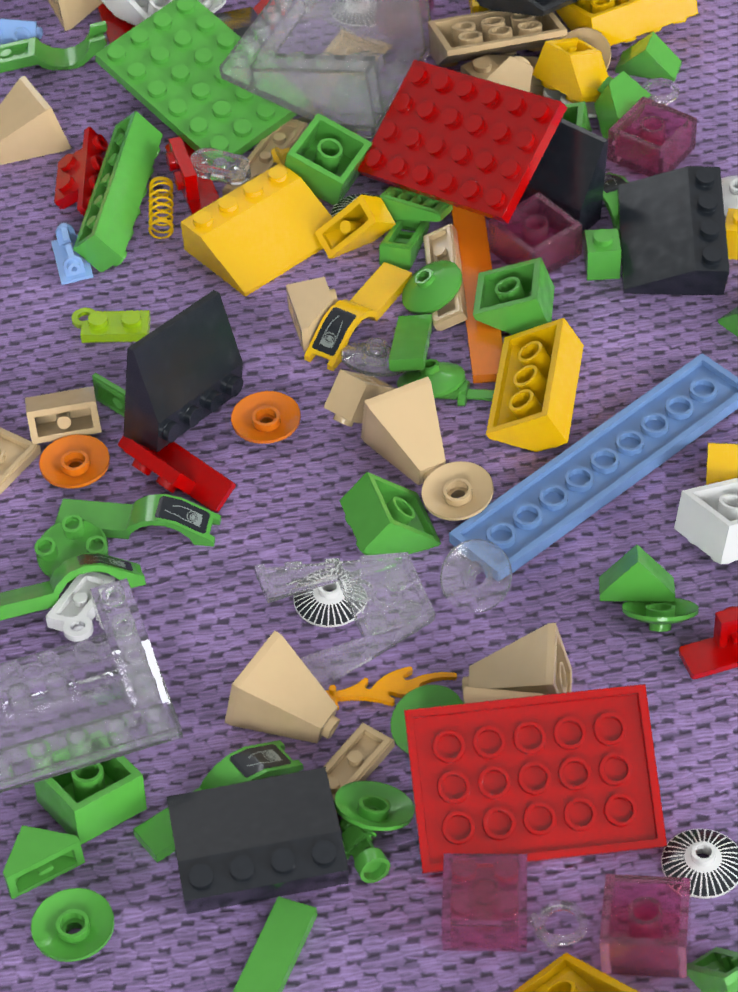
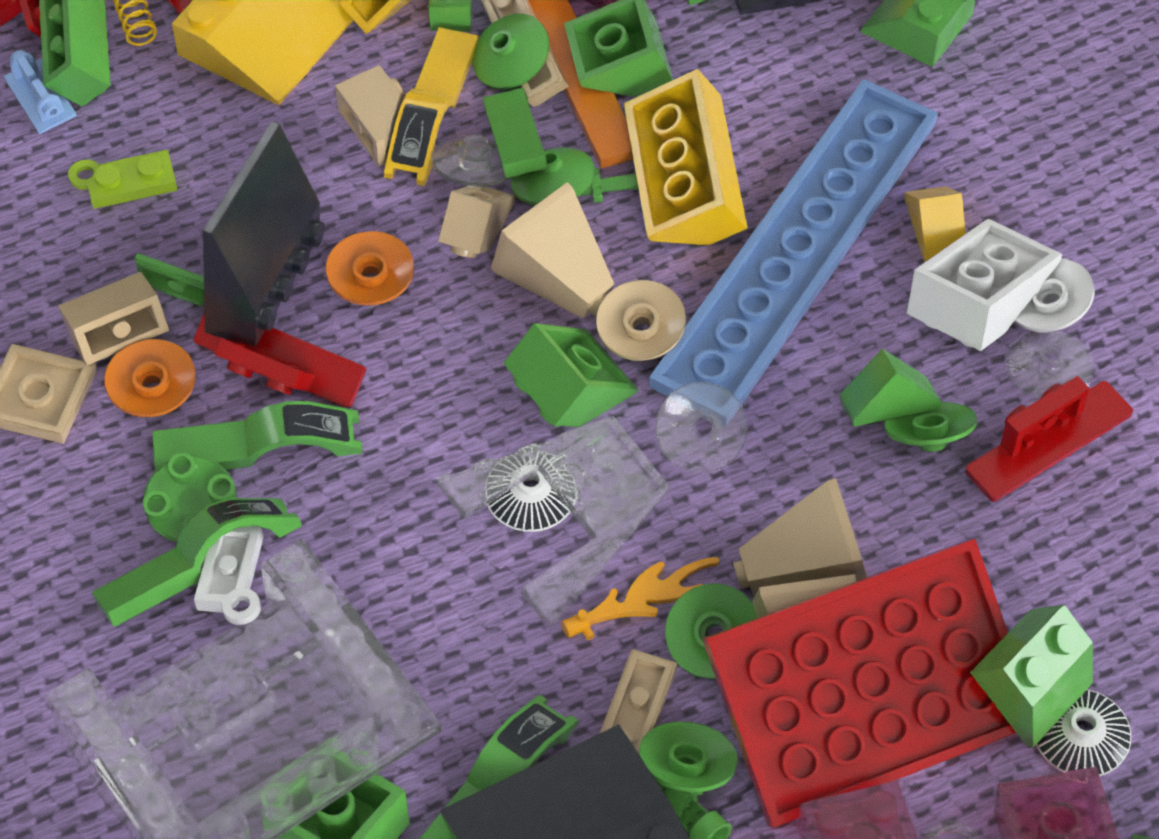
camera: 20 degrees left, 10 degrees up
(281, 696) = (530, 640): tan slope -> none
(672, 802) = (1038, 671): none -> bright green slope

